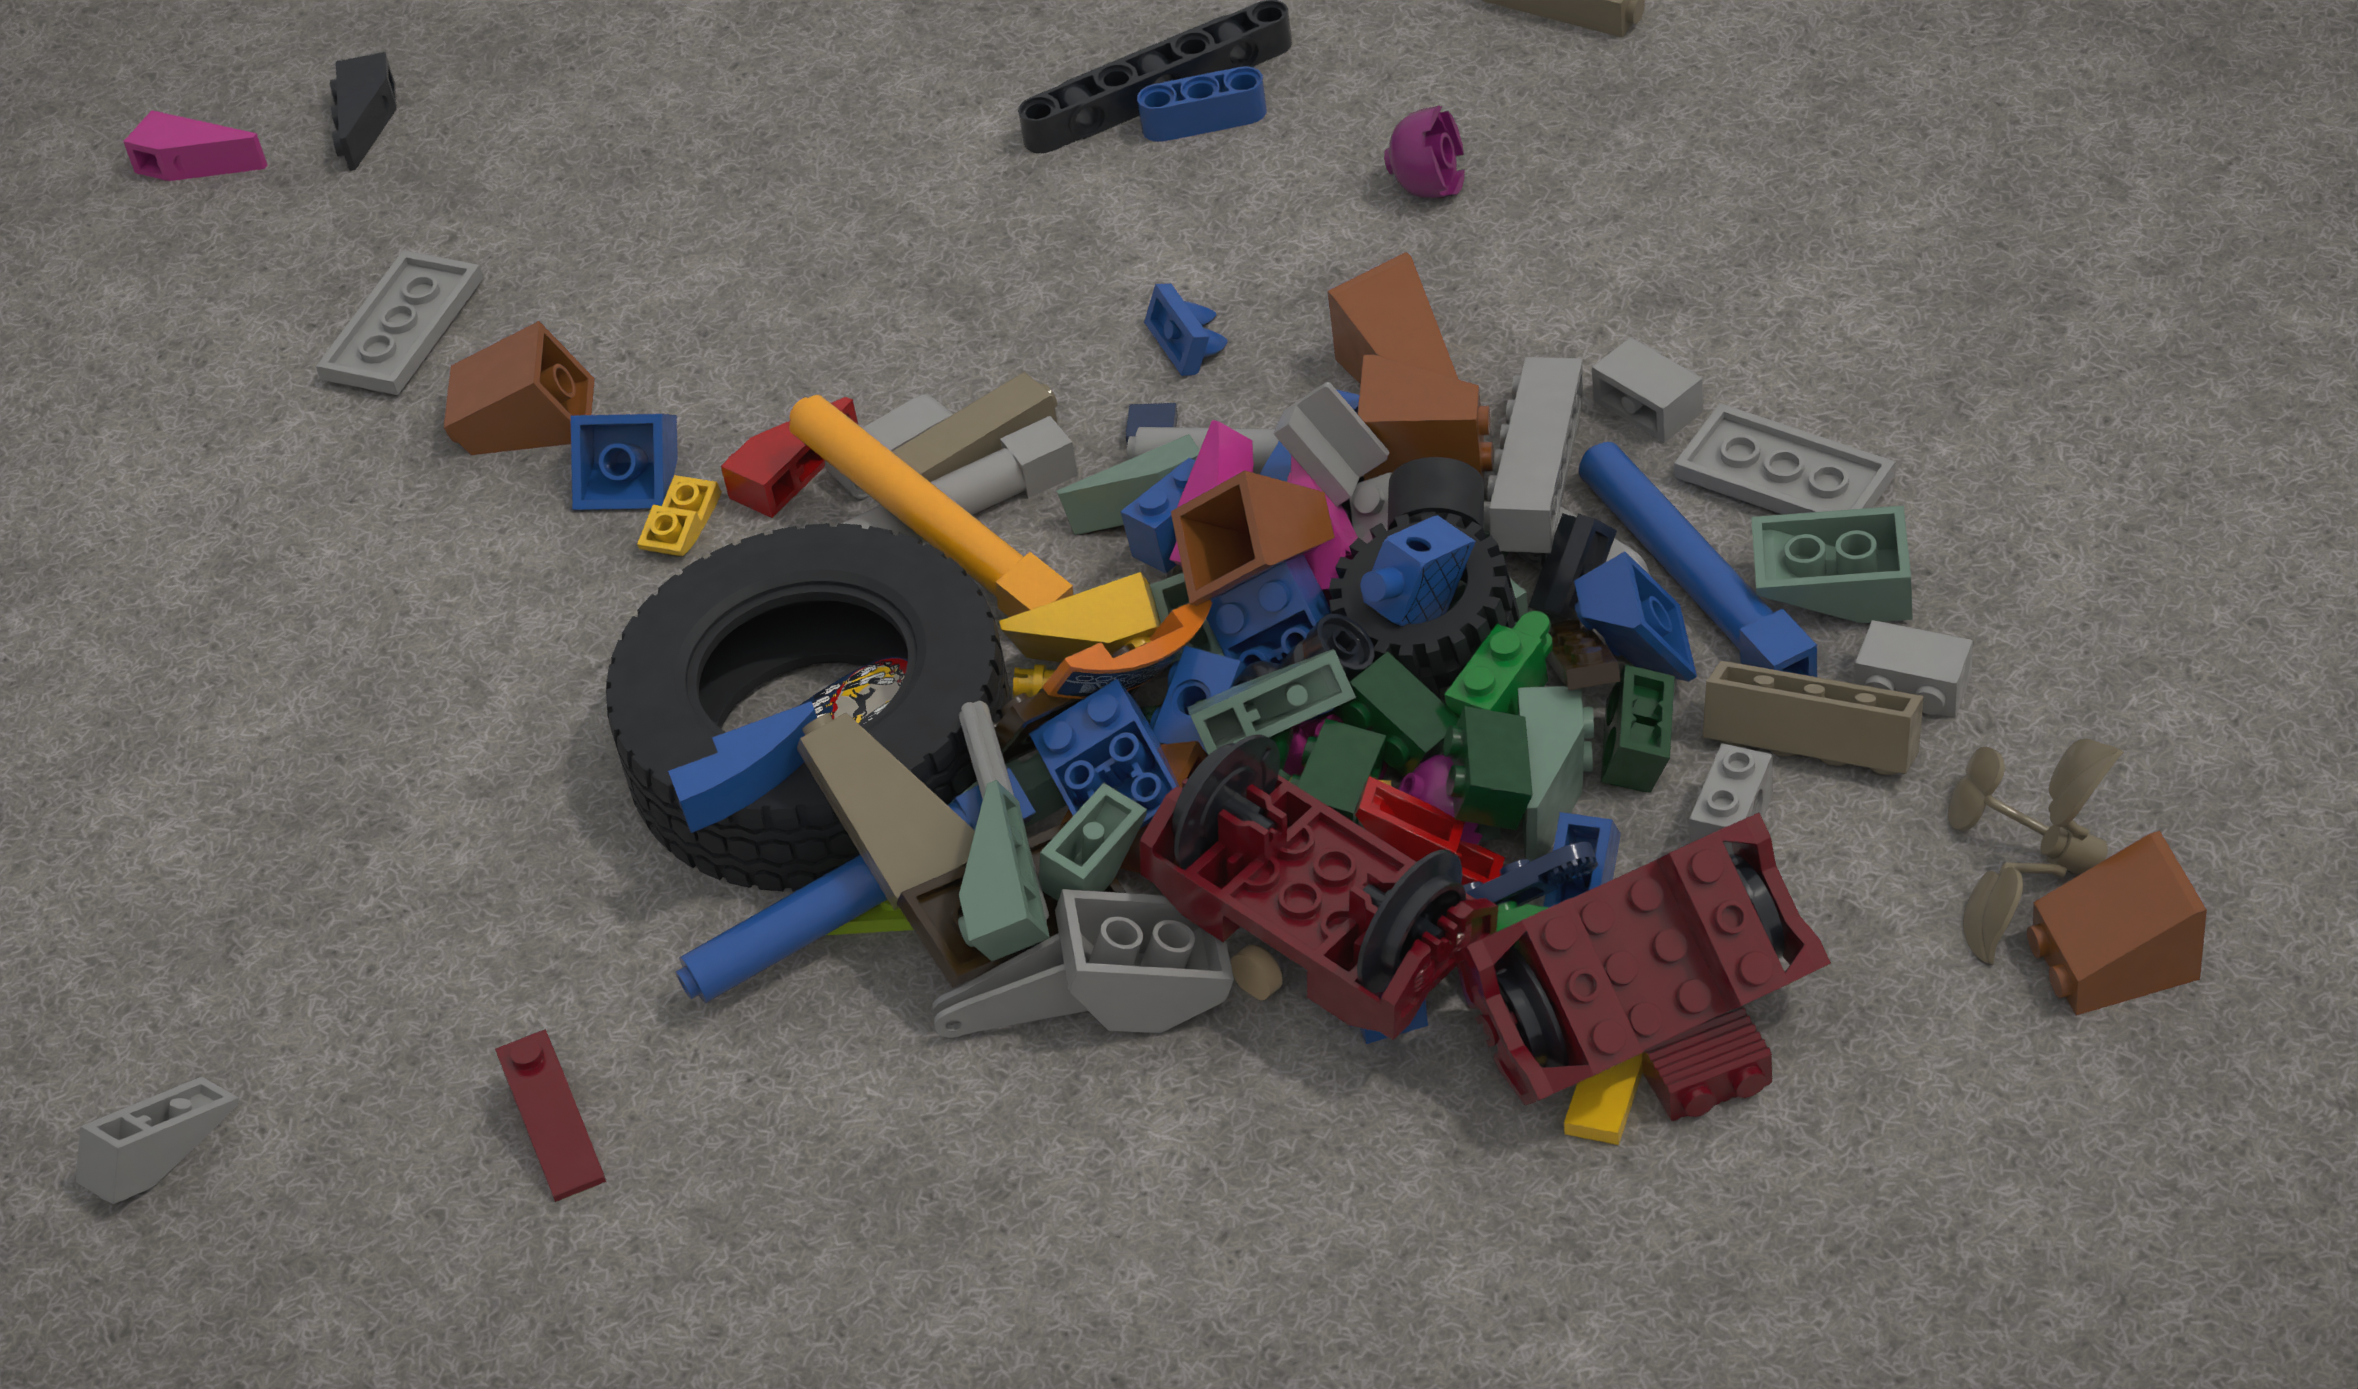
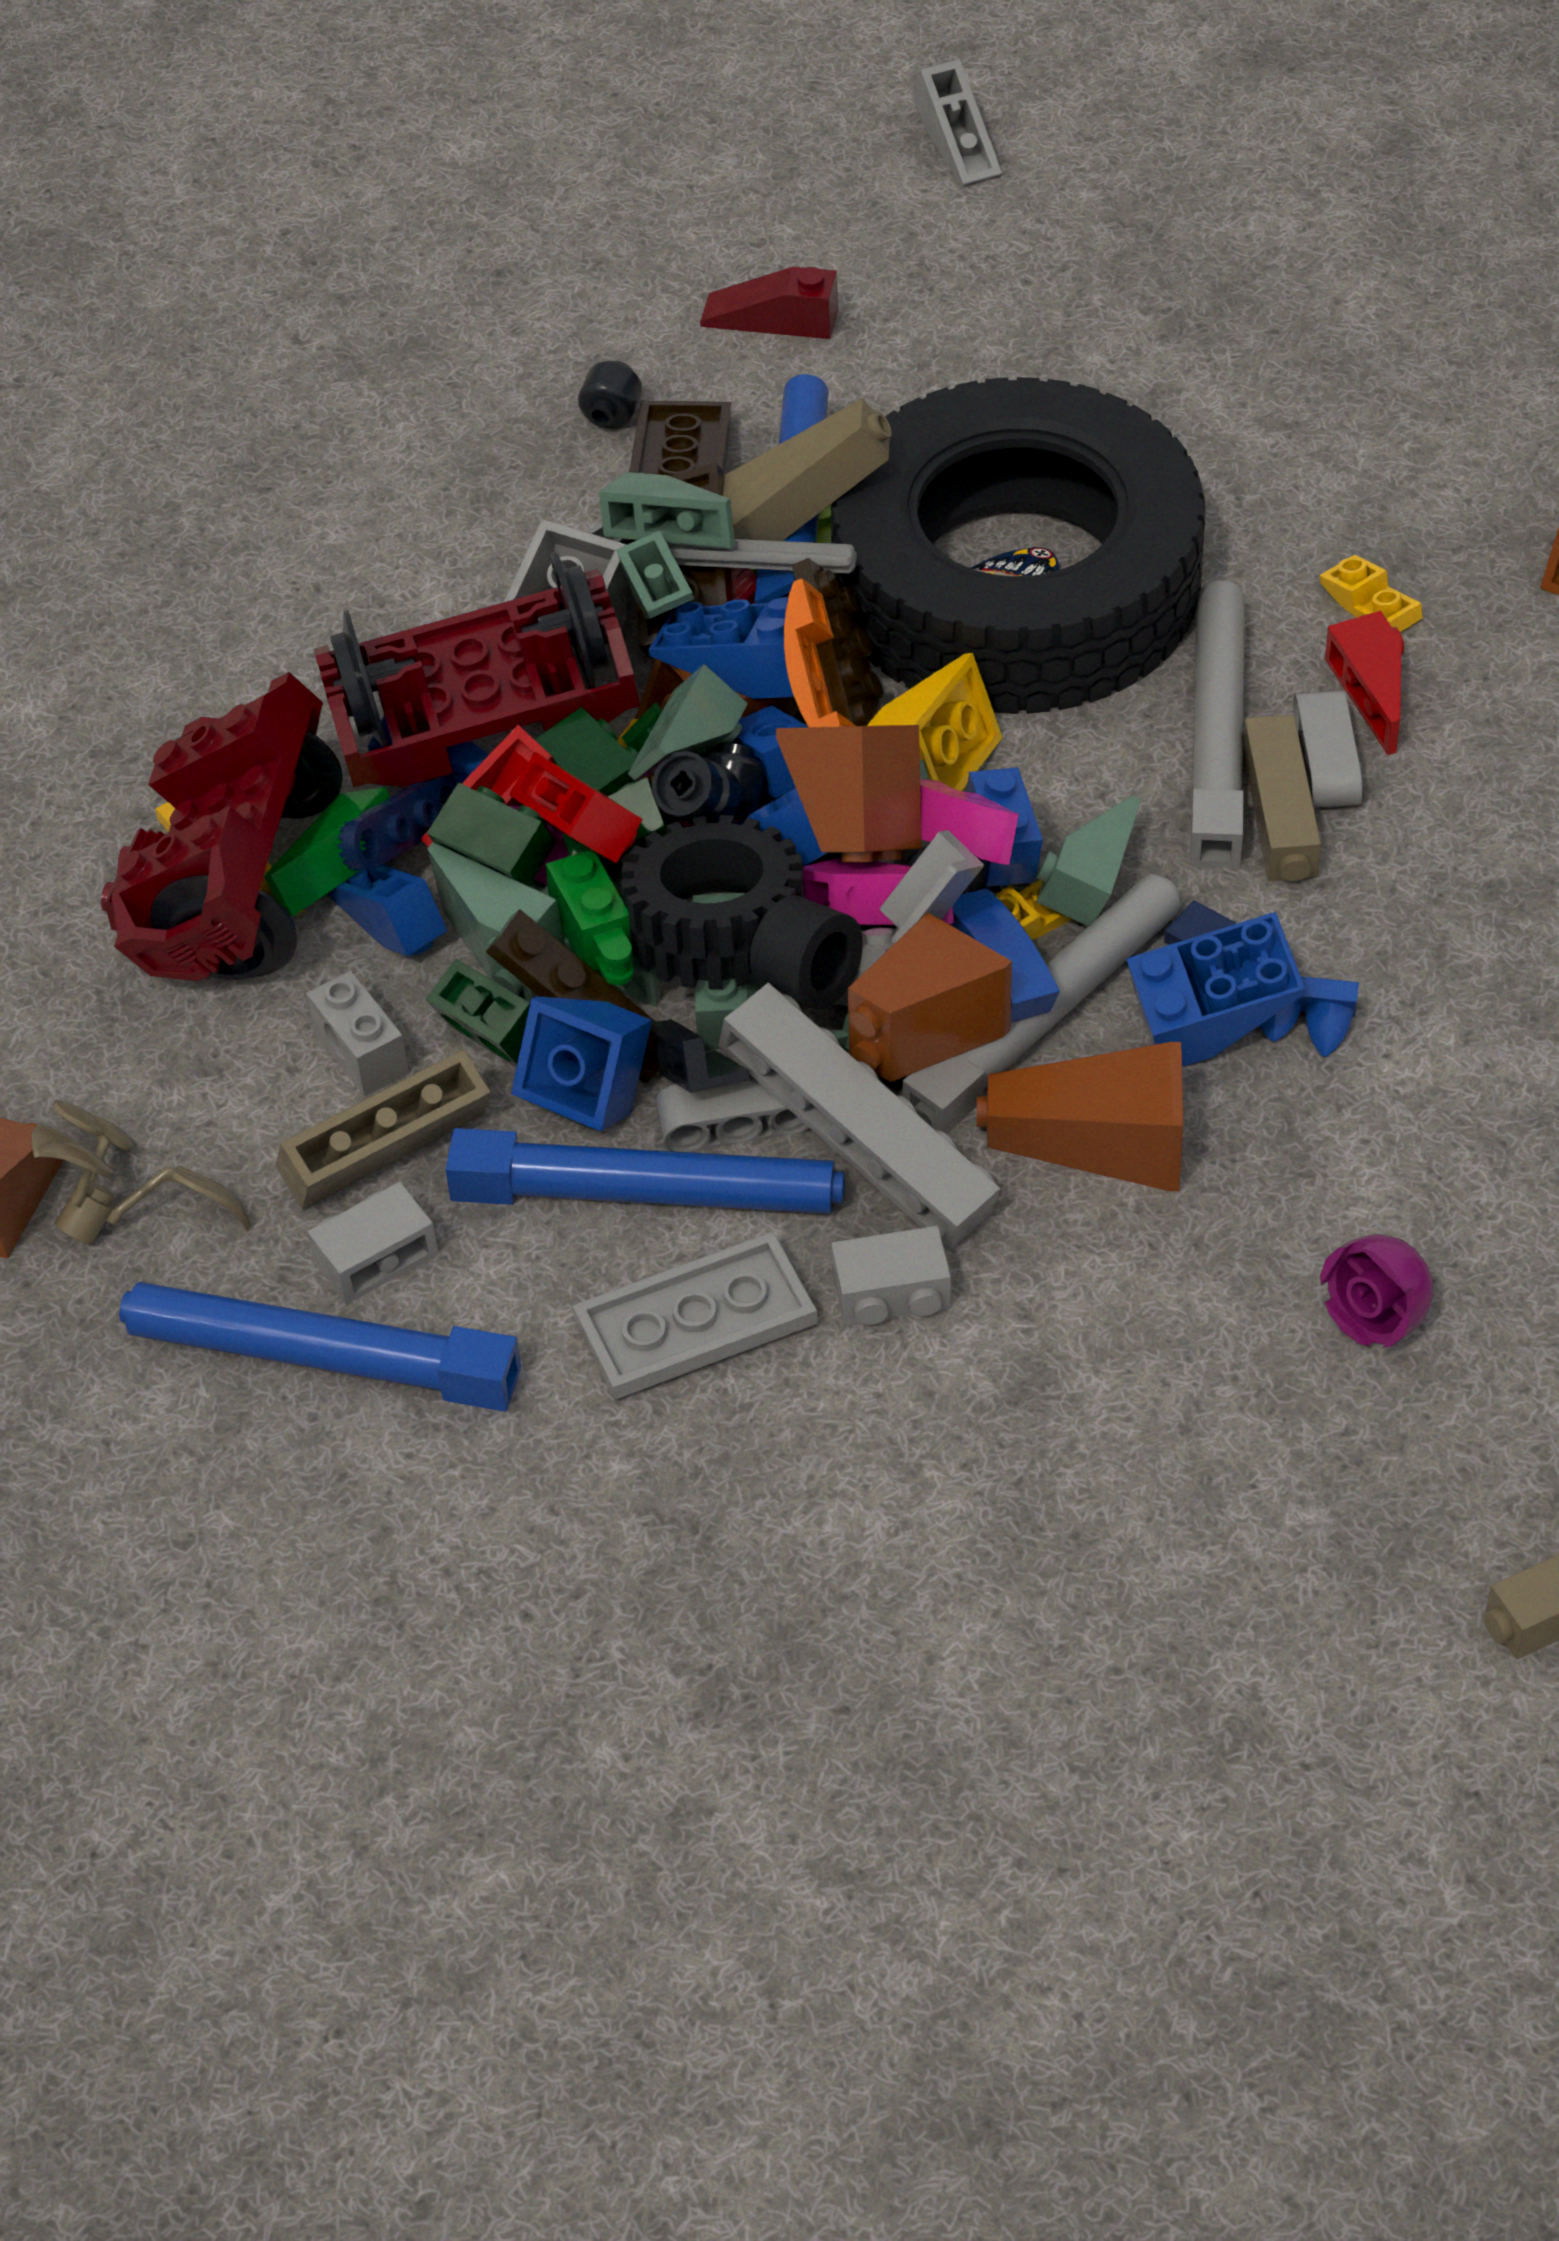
camera: 120 degrees right, 5 degrees up
(622, 460) = (1477, 579): blue slope -> none
(743, 769) = (911, 402): blue slope -> none
(788, 1149) = (610, 394): none -> black head
(843, 1030) = (680, 436): none -> dark brown plate
(1014, 579) = (1044, 737): light orange brick -> none
(1229, 352) = (1215, 986): none -> blue slope
(1417, 572) = (709, 871): blue torso -> none
(1422, 710) = (576, 808): none -> red slope
(1836, 562) = (523, 1248): sand green slope -> none
(1963, 554) = (466, 1366): none -> blue brick

